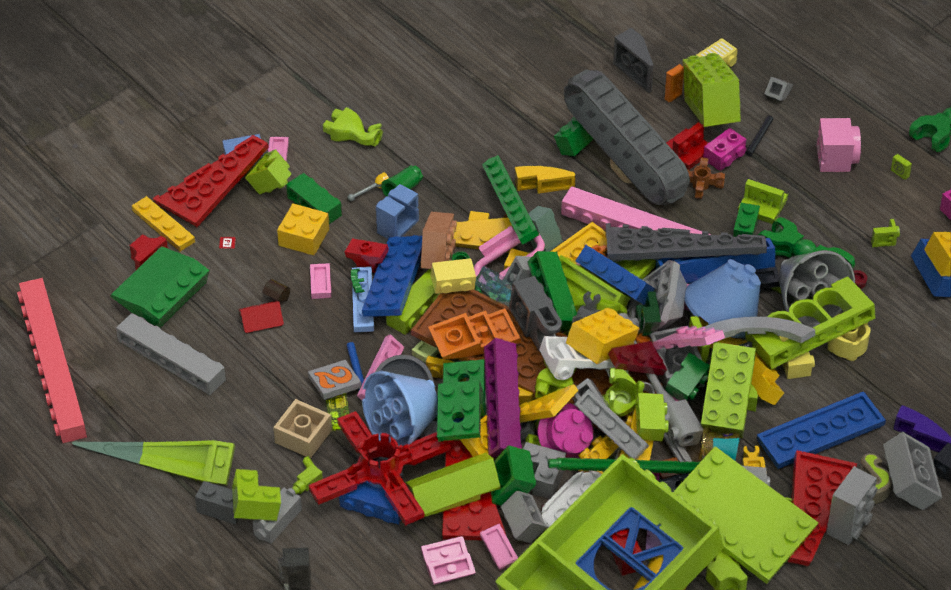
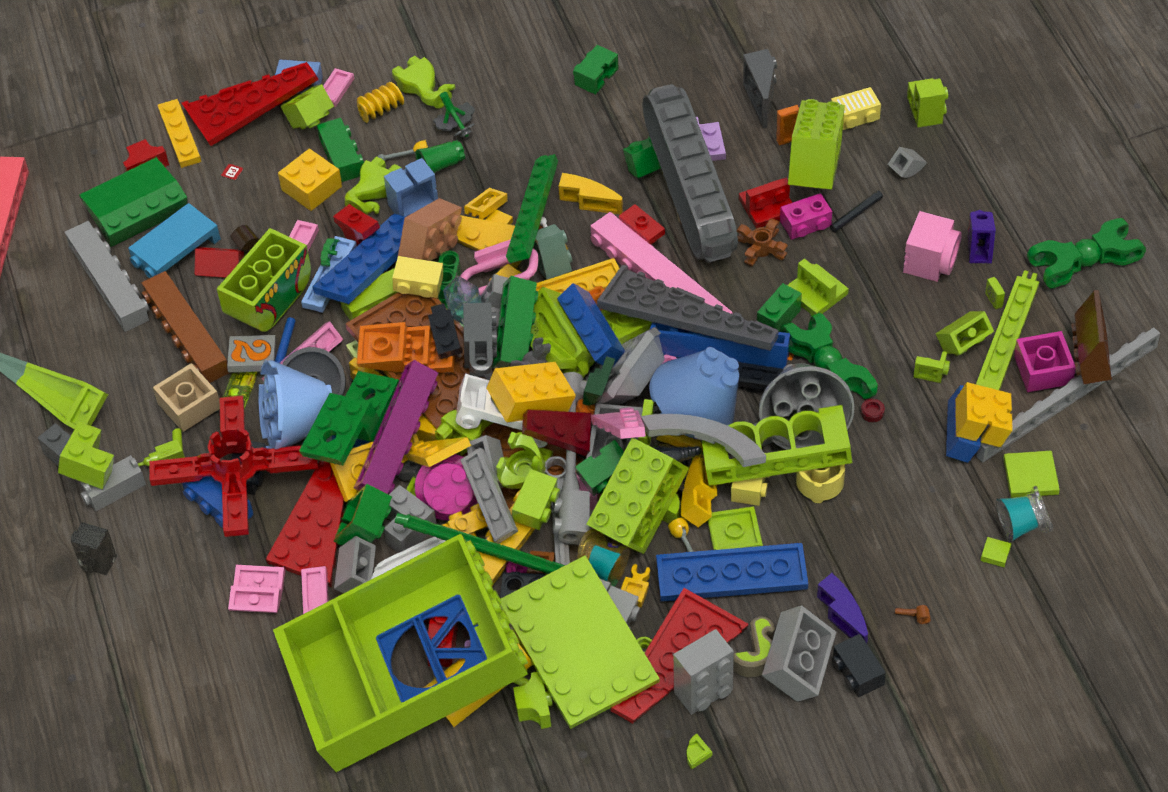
camera: 25 degrees right, 5 degrees up
(213, 311) = (172, 240): none -> dark azure panel
(263, 373) = (184, 327): none -> dark orange brick
(321, 315) = (266, 281): none -> lime brick
(325, 152) = (379, 99): none -> yellow piece
(358, 218) = (370, 186): none -> lime hips
(400, 145) = (461, 114): none -> dark grey plant
(455, 484) = (297, 509): lime slope -> none
(464, 213) = (485, 203): none -> yellow tile
(490, 78) = (595, 67): none -> green brick
(499, 311) = (444, 331): none -> black hinge
(603, 188) = (642, 224): none -> red brick
(762, 411) = (679, 529): none -> yellow hinge
(769, 37) = (927, 101): none -> lime brick
(803, 398) = (734, 529): none -> lime tile
(870, 570) = (697, 752): none -> lime tile
(871, 127) = (981, 227): none -> dark purple torso
(897, 201) = (965, 332): none -> lime brick
(926, 190) = (1008, 331): none -> lime hinge

